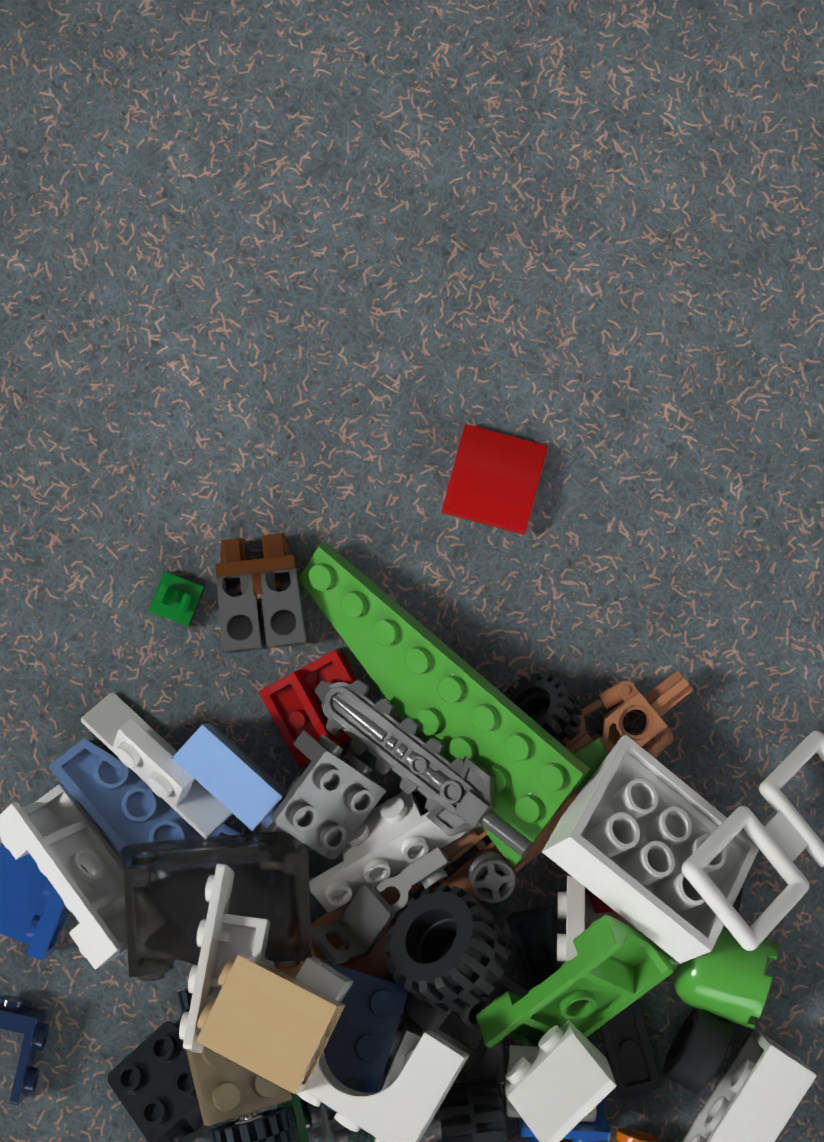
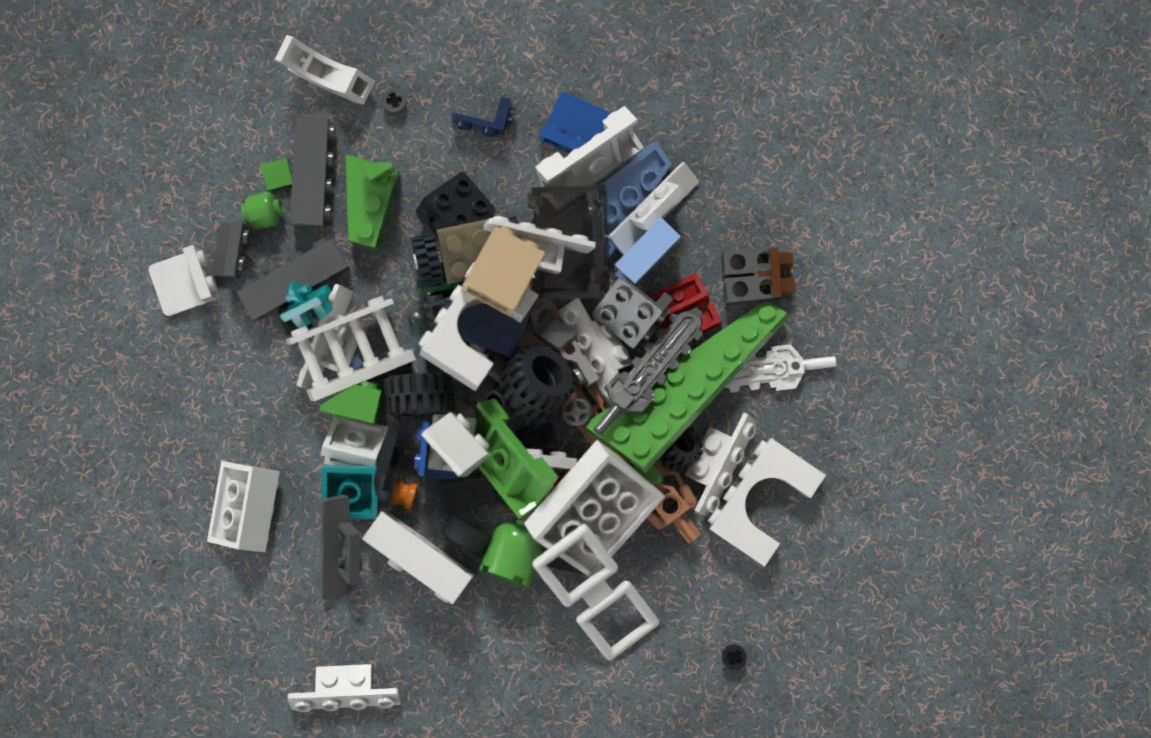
camera: 90 degrees right, 0 degrees up
(176, 599) = (755, 223): green tile -> none
(406, 552) = (780, 368): none -> white bar
(494, 479) = (825, 425): red slope -> none
(558, 645) = (719, 460): none -> white bracket
(653, 622) = (771, 462): none -> white arch

